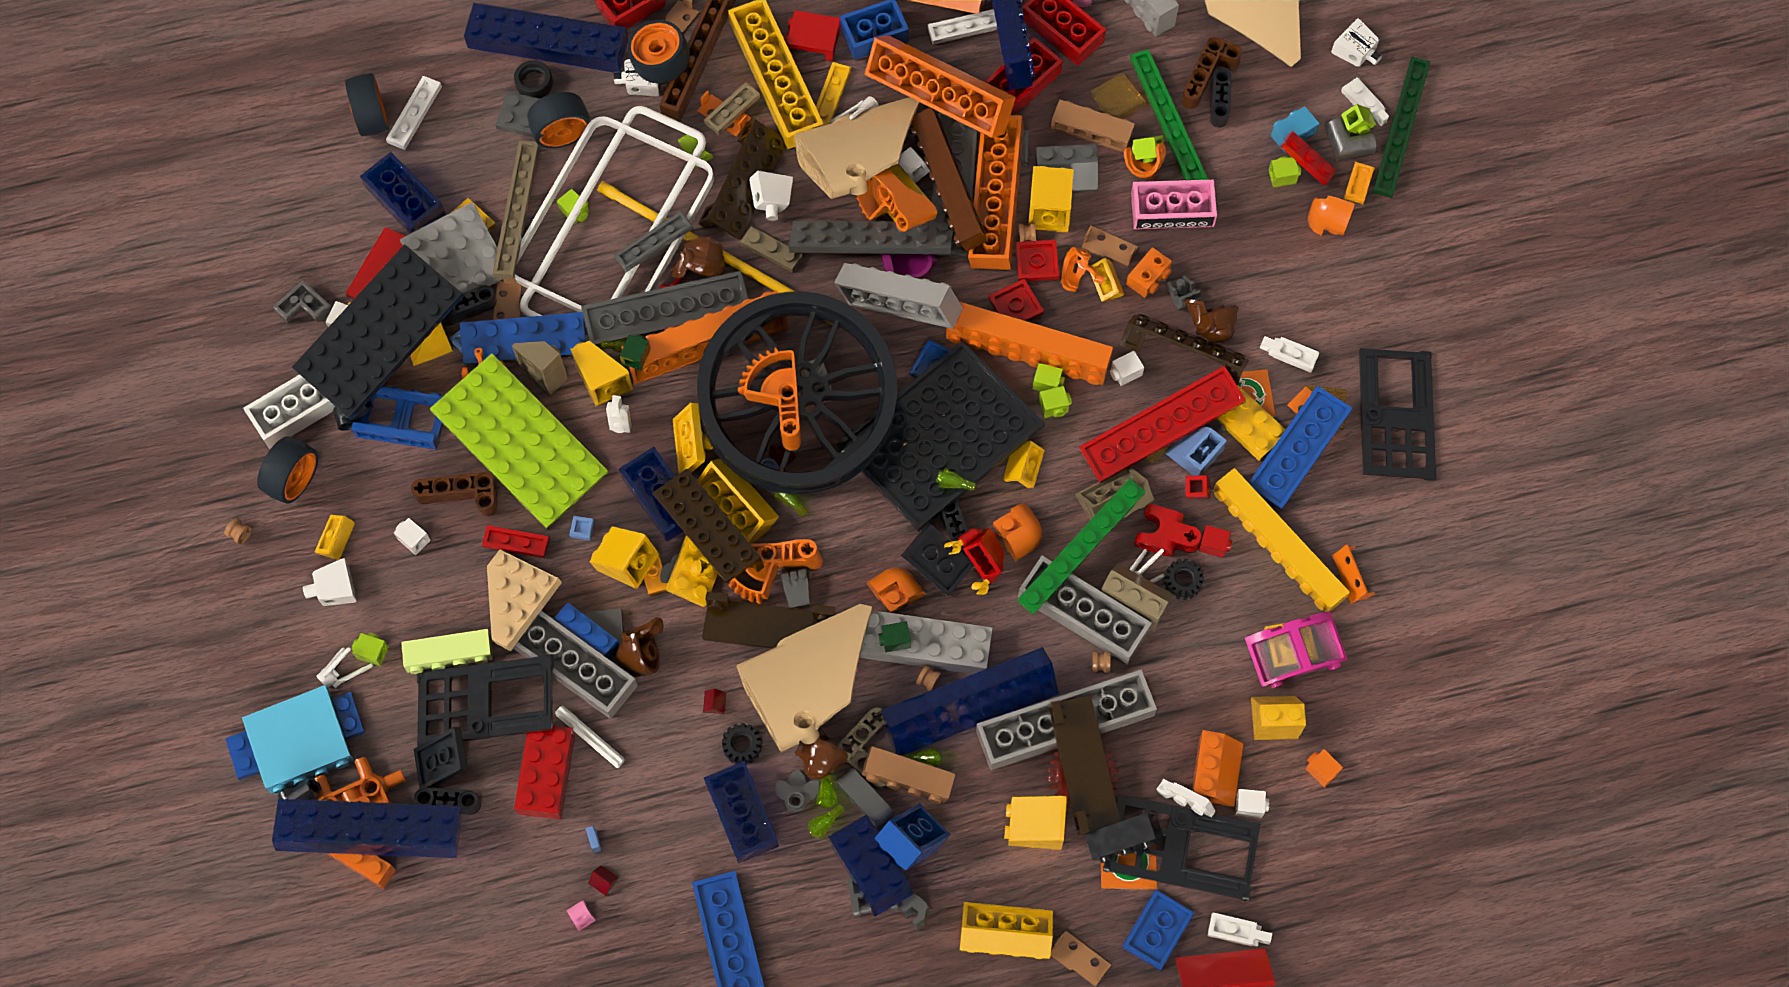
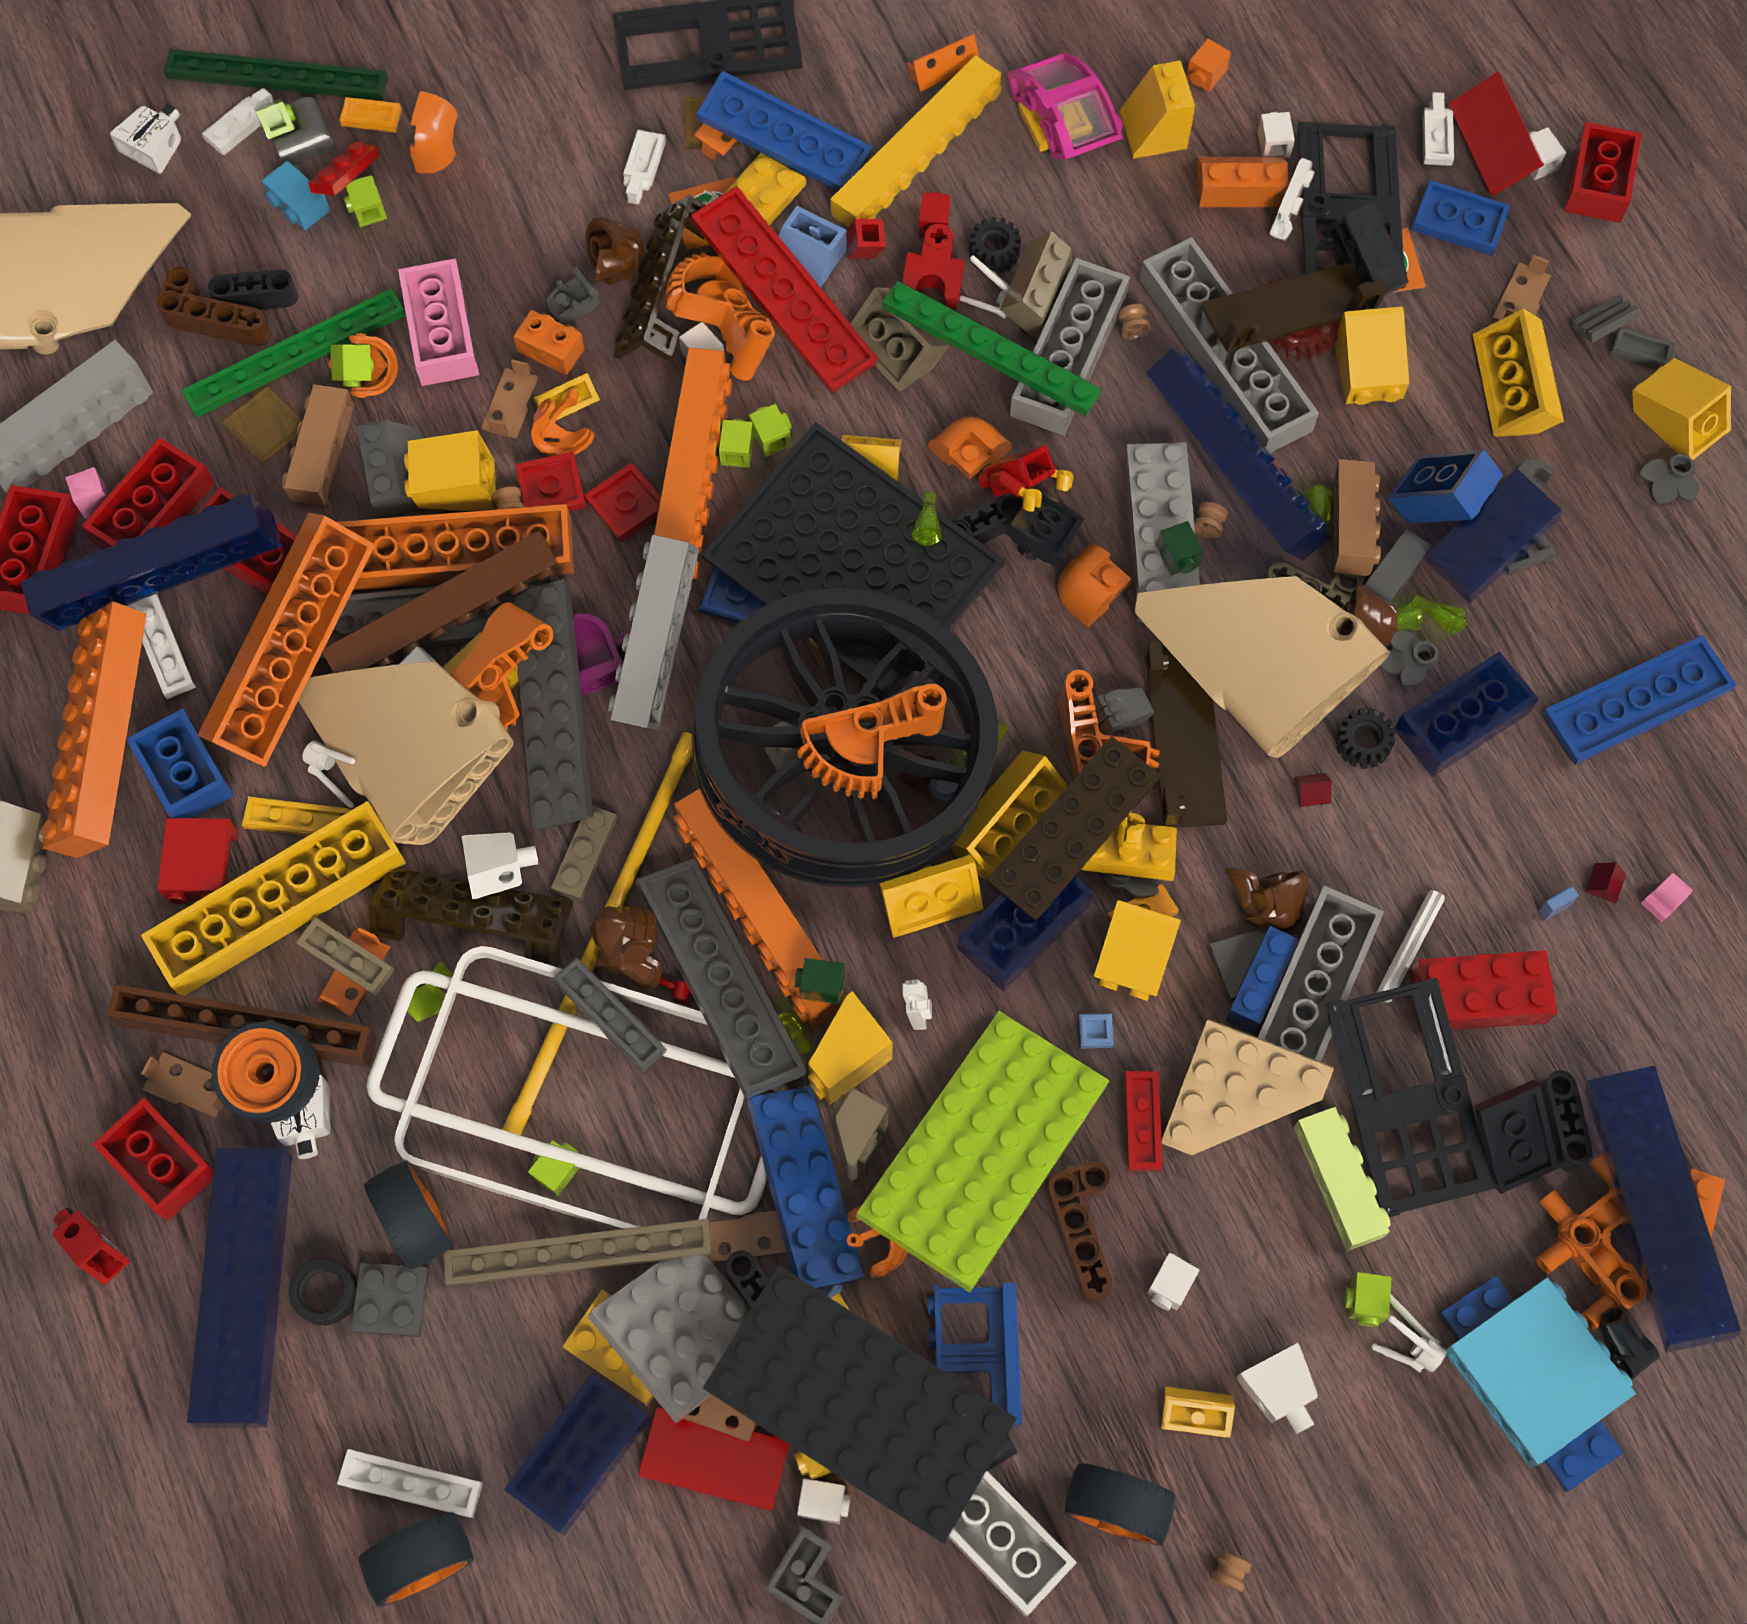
camera: 100 degrees left, 0 degrees up
(1154, 373) = (722, 305): none -> orange arm

